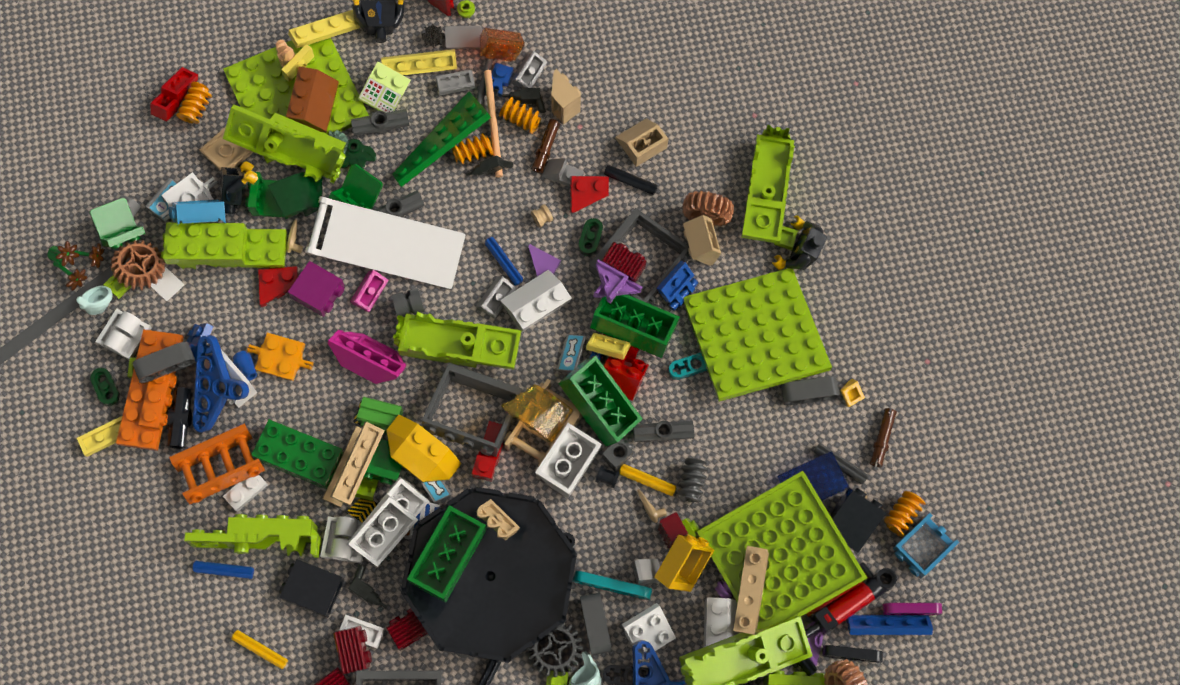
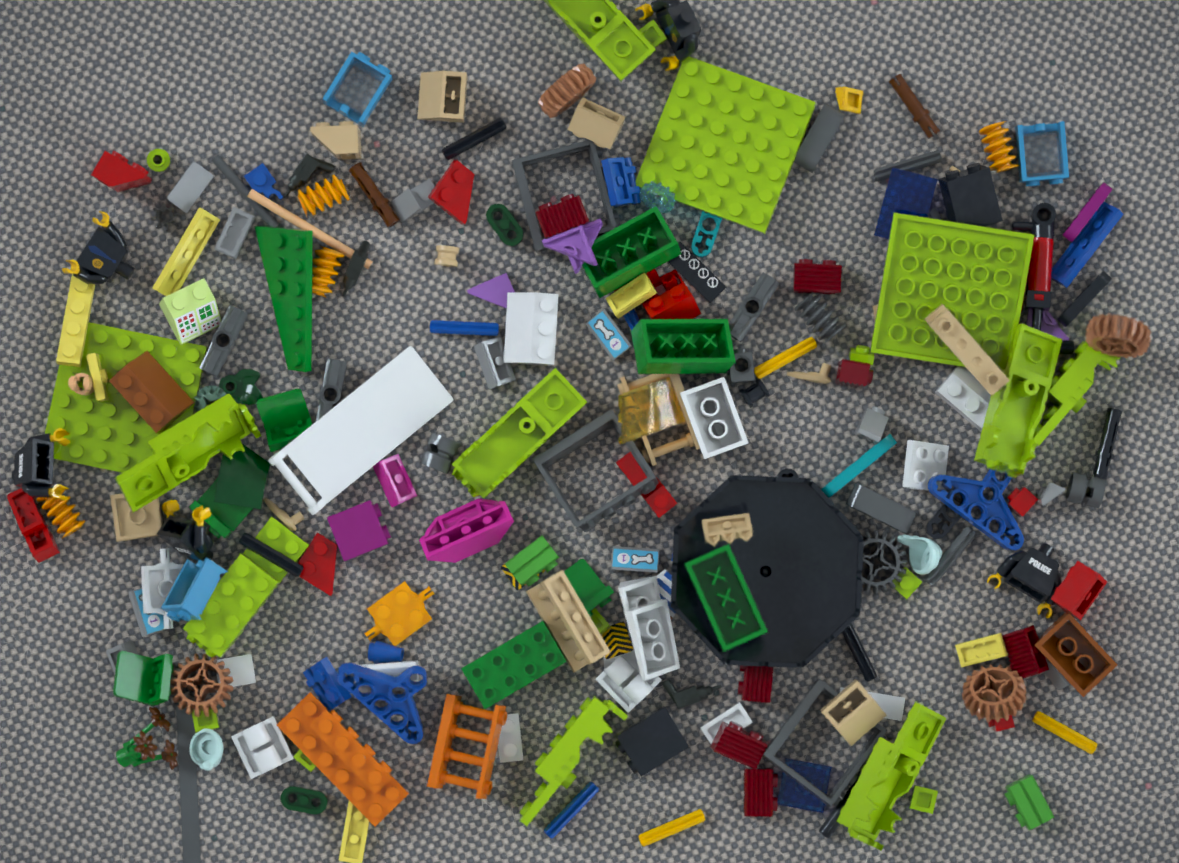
camera: 50 degrees left, 15 degrees up
(163, 362) = (333, 728): dark grey beam -> none
(179, 418) = (390, 750): black piece -> none
(213, 64) = (35, 465): none -> black torso
(258, 244) = (271, 555): none -> black axle
(420, 451) = (599, 550): yellow wedge -> none
(500, 44) = (231, 156): clear orange slope -> none
(529, 70) = (276, 148): light grey slope -> none
(605, 87) = (357, 88): none -> window
(657, 380) = (697, 274): none -> black sticker
(683, 309) = (664, 203): none -> clear light blue gear
(684, 563) = (892, 387): yellow window -> none
(719, 461) = (817, 278): none -> dark red brick
(723, 590) = (940, 369): medium lavender plate -> none

